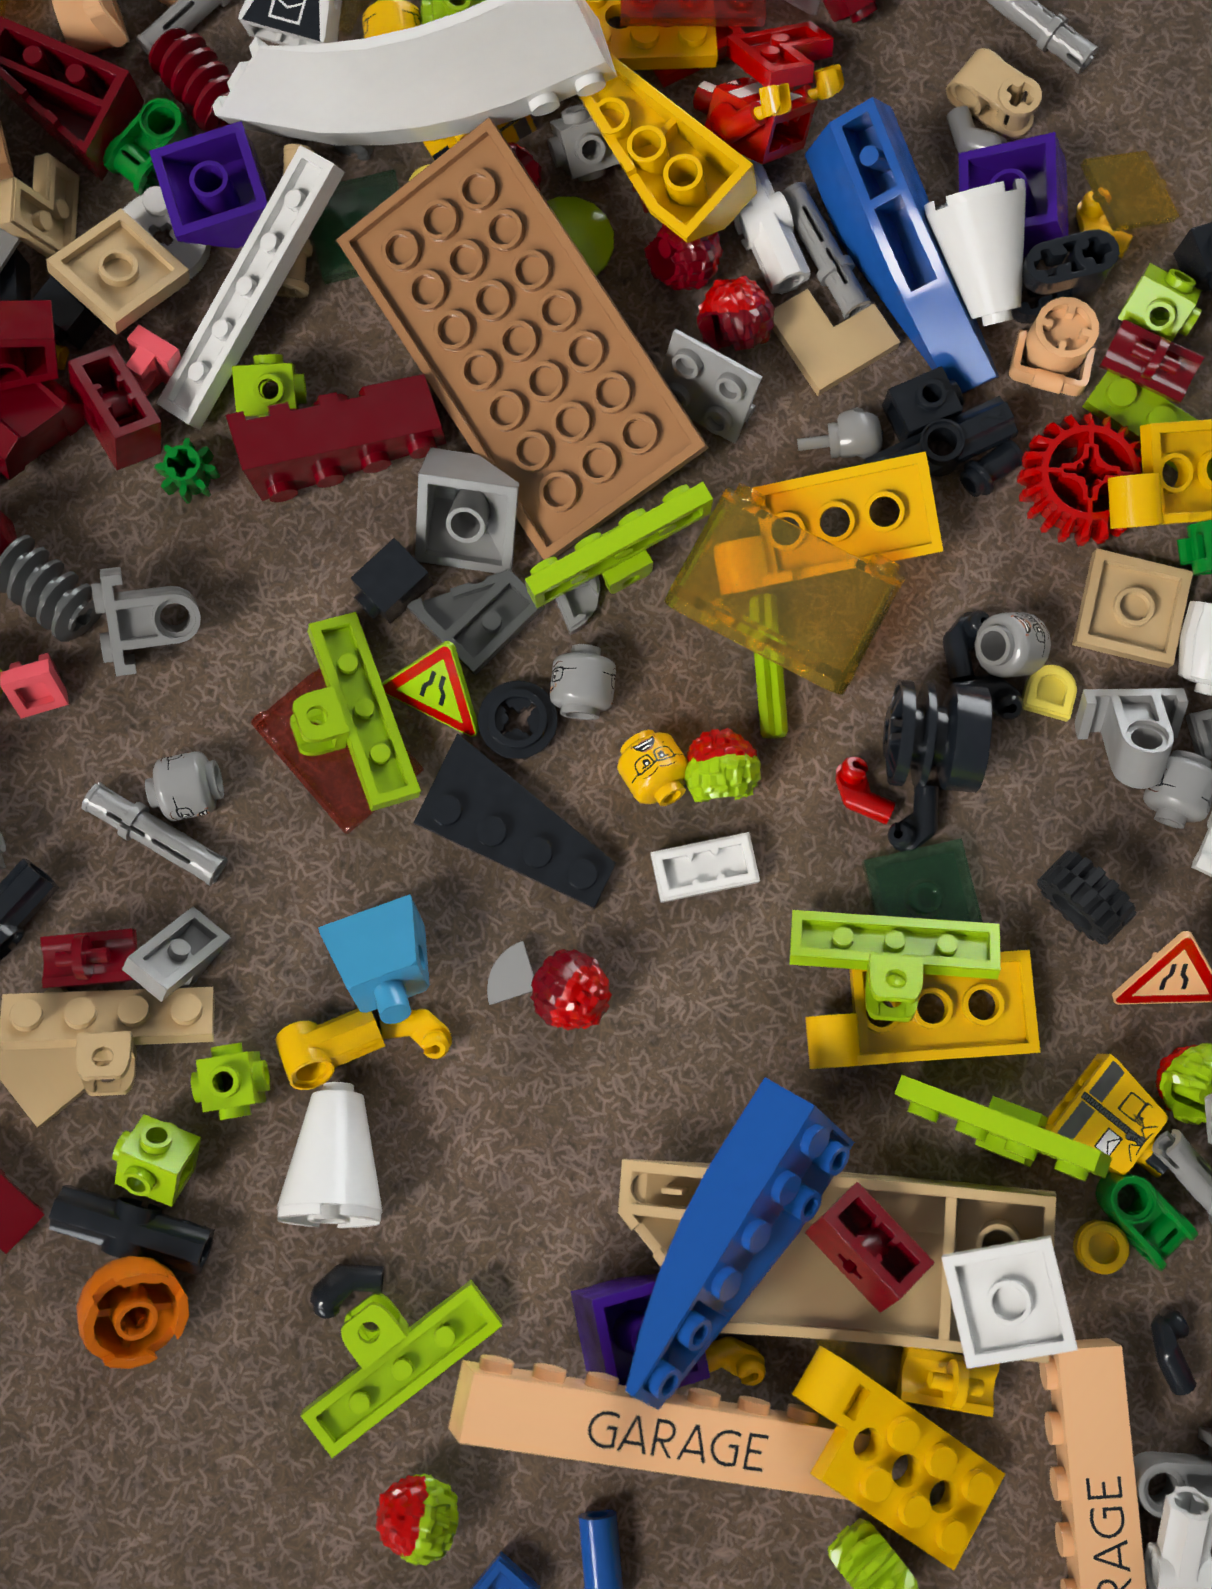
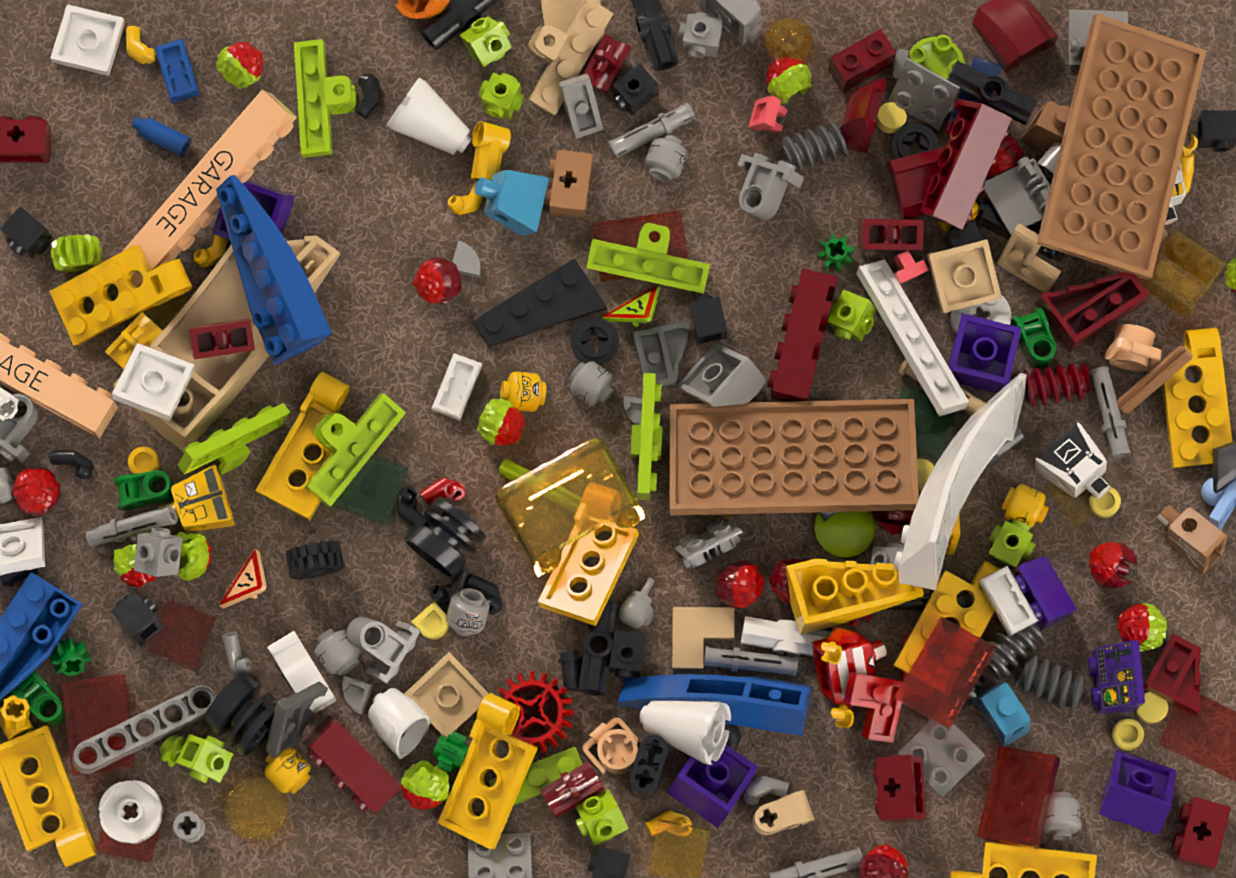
camera: 120 degrees right, 5 degrees down
(106, 893) = (634, 90): none -> black brick
(277, 894) = (573, 200): none -> medium nougat brick

